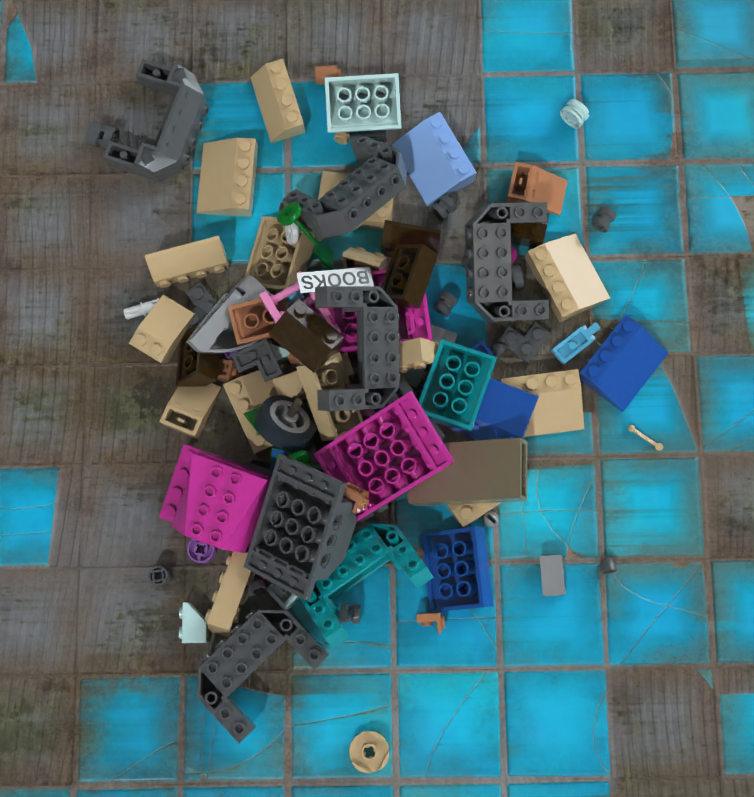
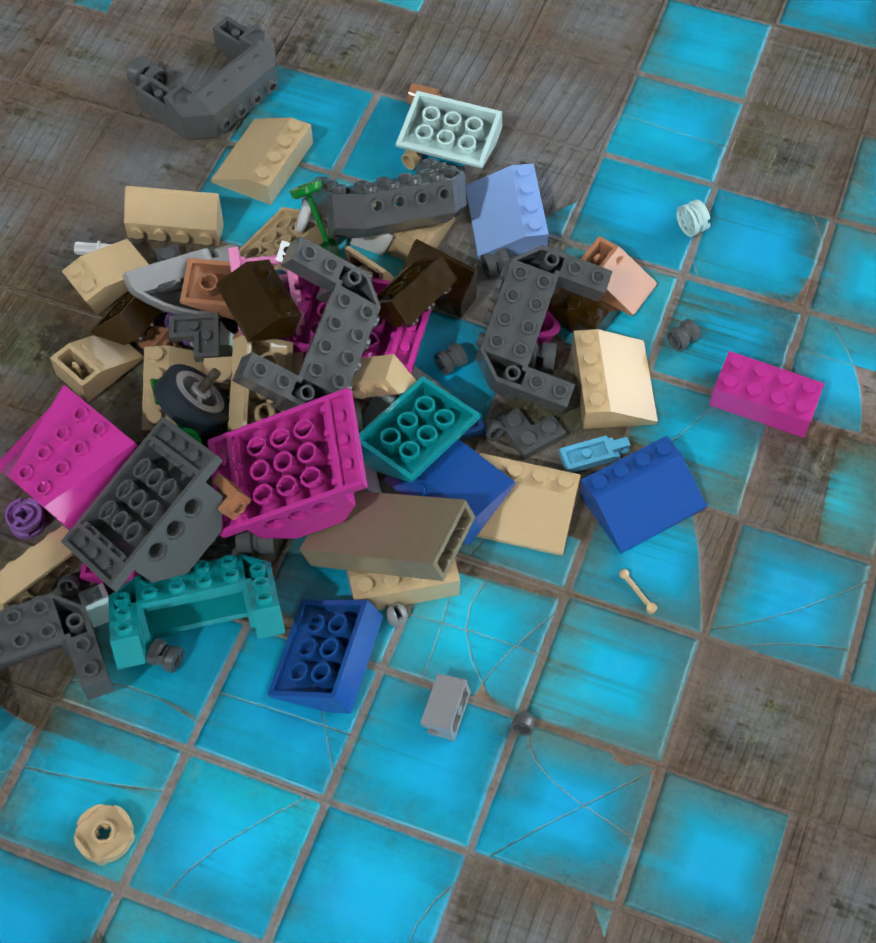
camera: 15 degrees right, 20 degrees down
(277, 101) = (356, 105): tan slope -> none
(428, 618) = (262, 697): nougat bracket -> none
(680, 248) = (766, 394): none -> dark pink brick

